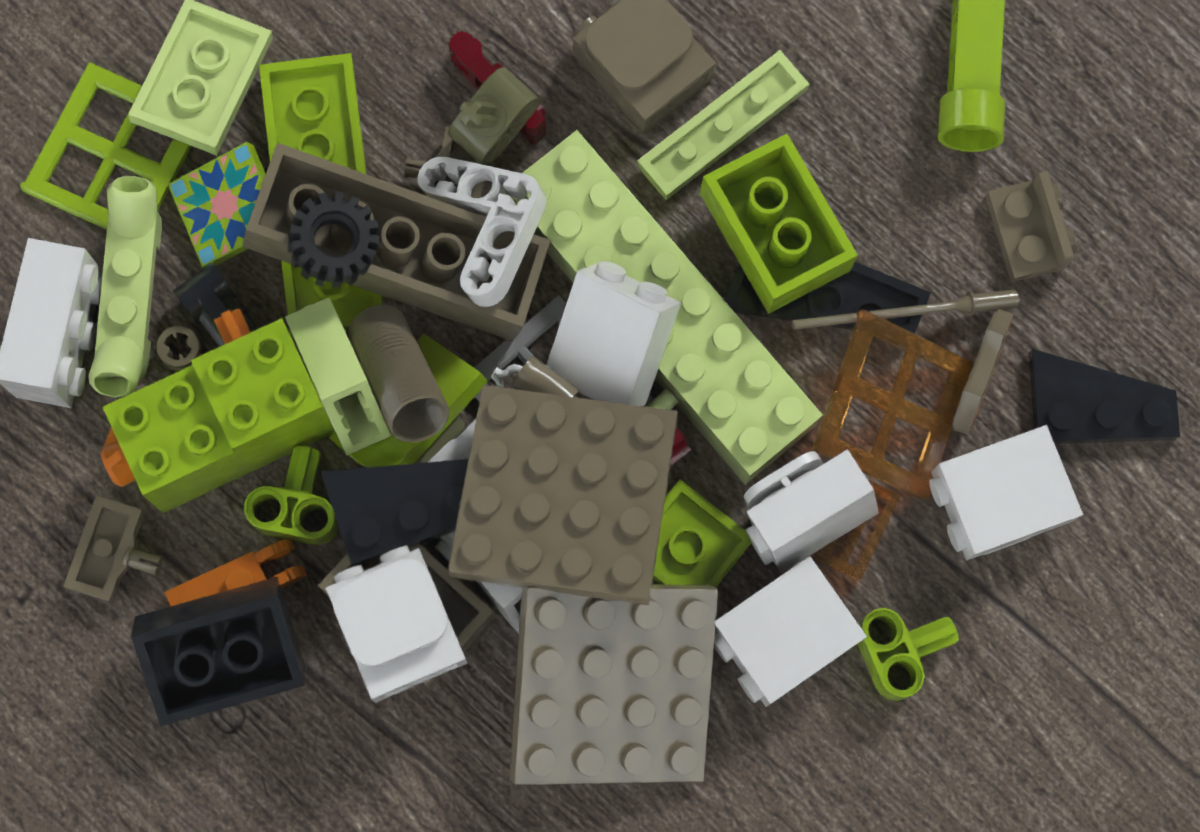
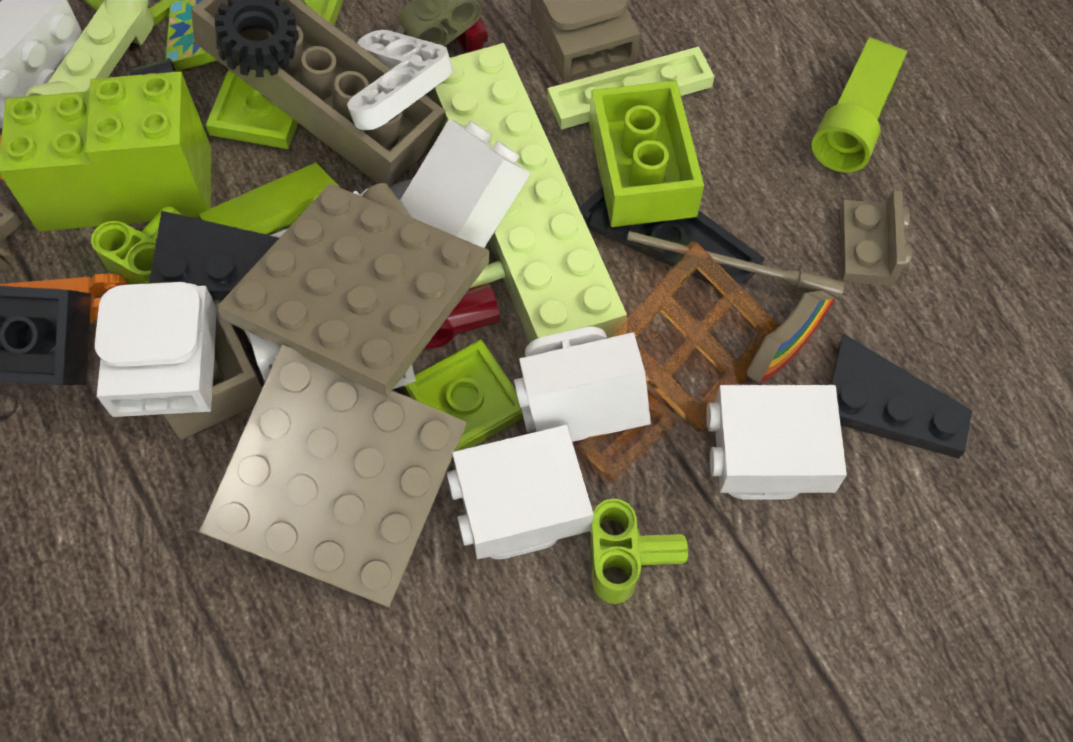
camera: 25 degrees right, 15 degrees down
(337, 376) = (217, 153): yellowish green brick -> none
(398, 374) = (269, 169): dark tan piece -> none

